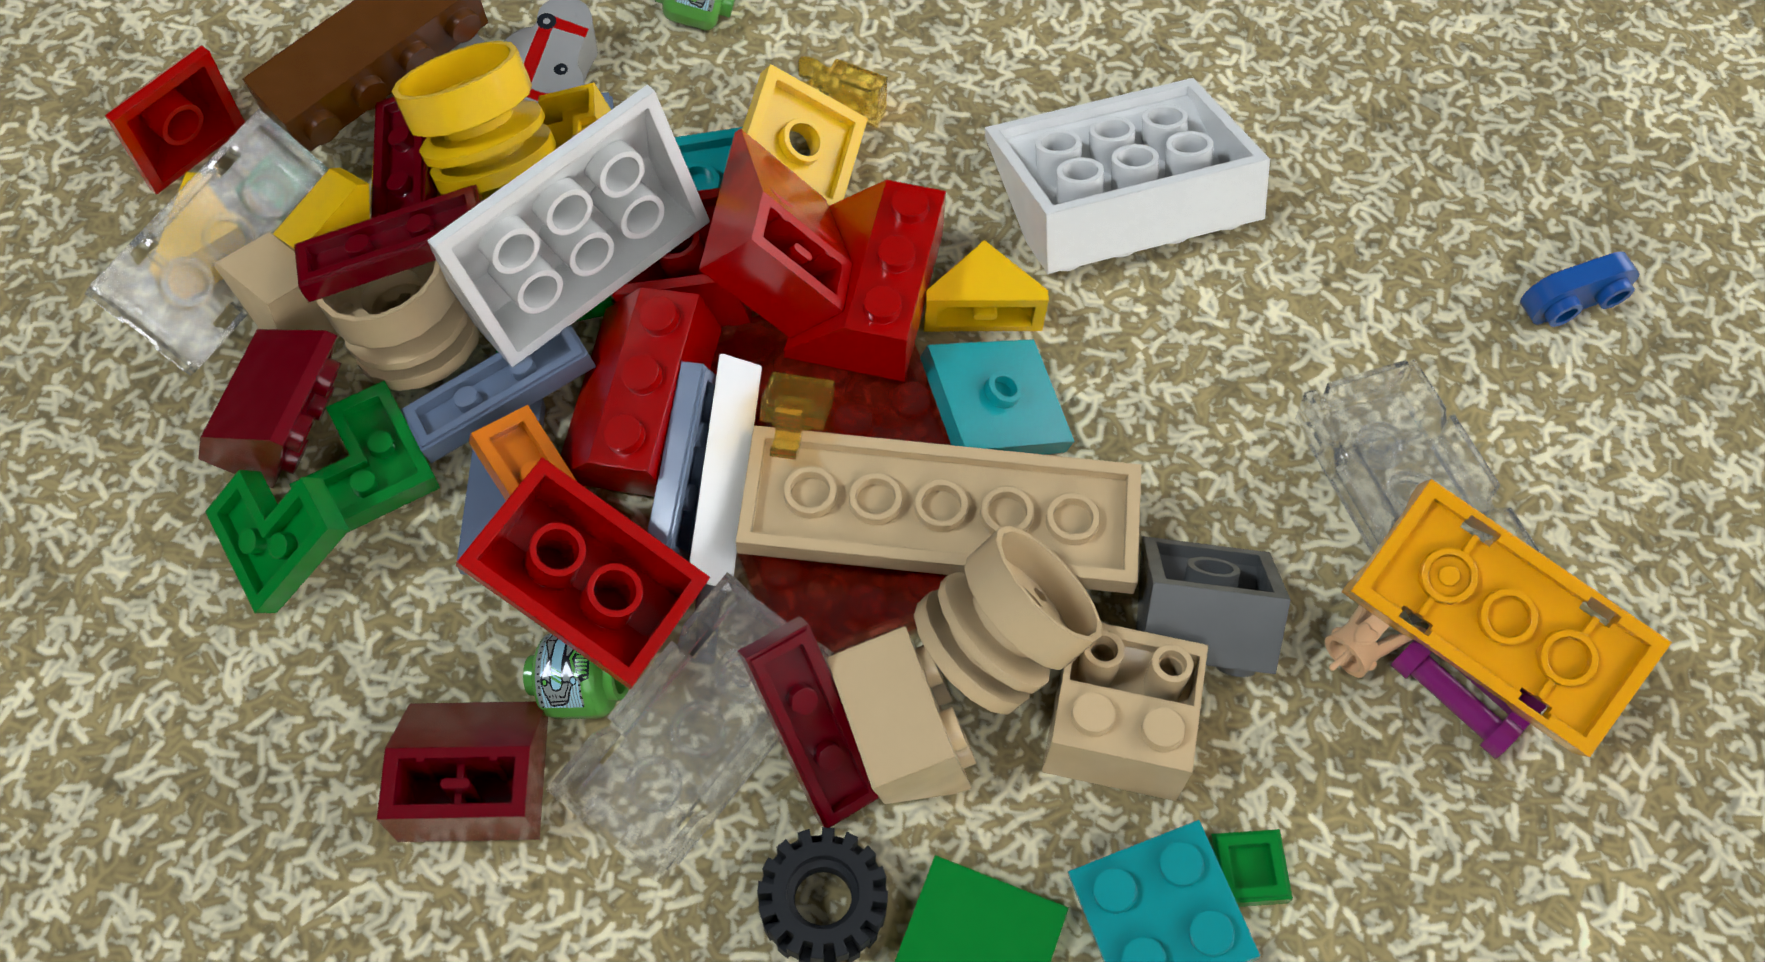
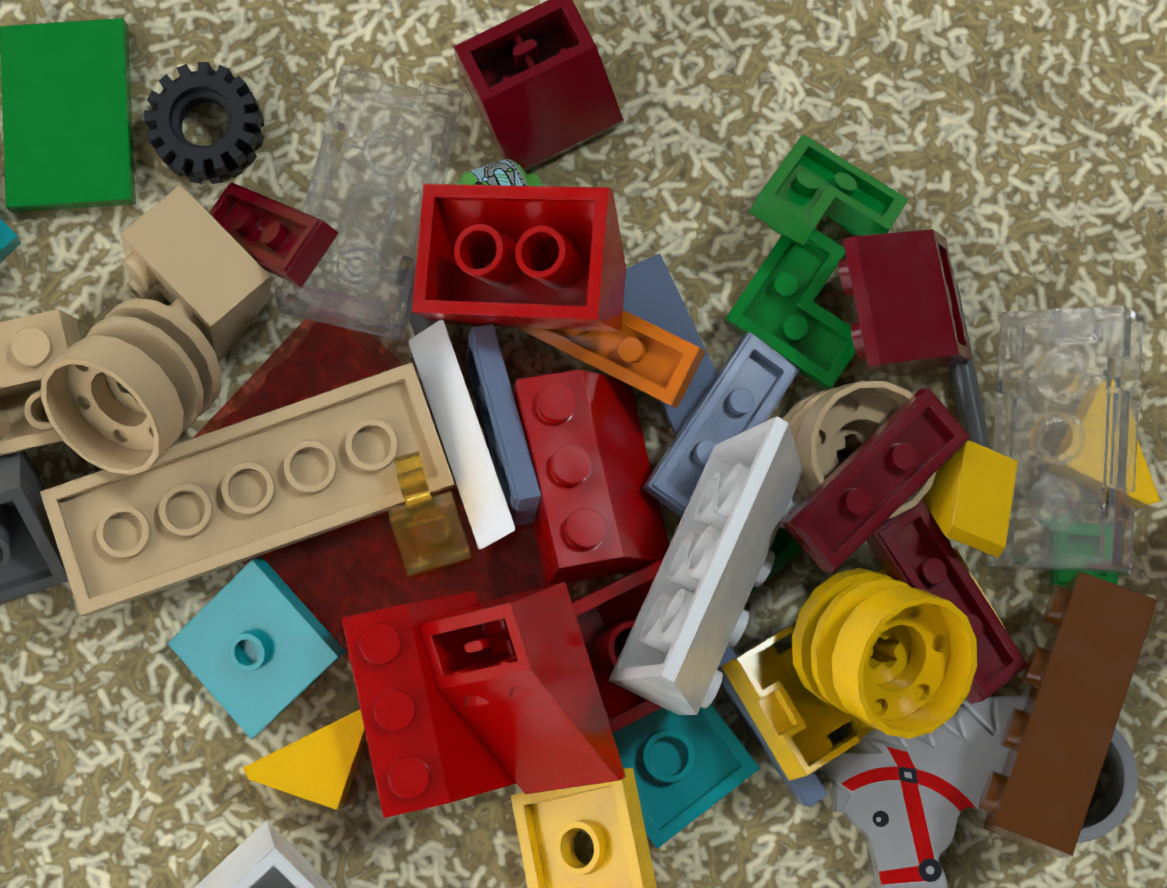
camera: 155 degrees right, 20 degrees up
(267, 286) = (991, 413): tan slope -> none

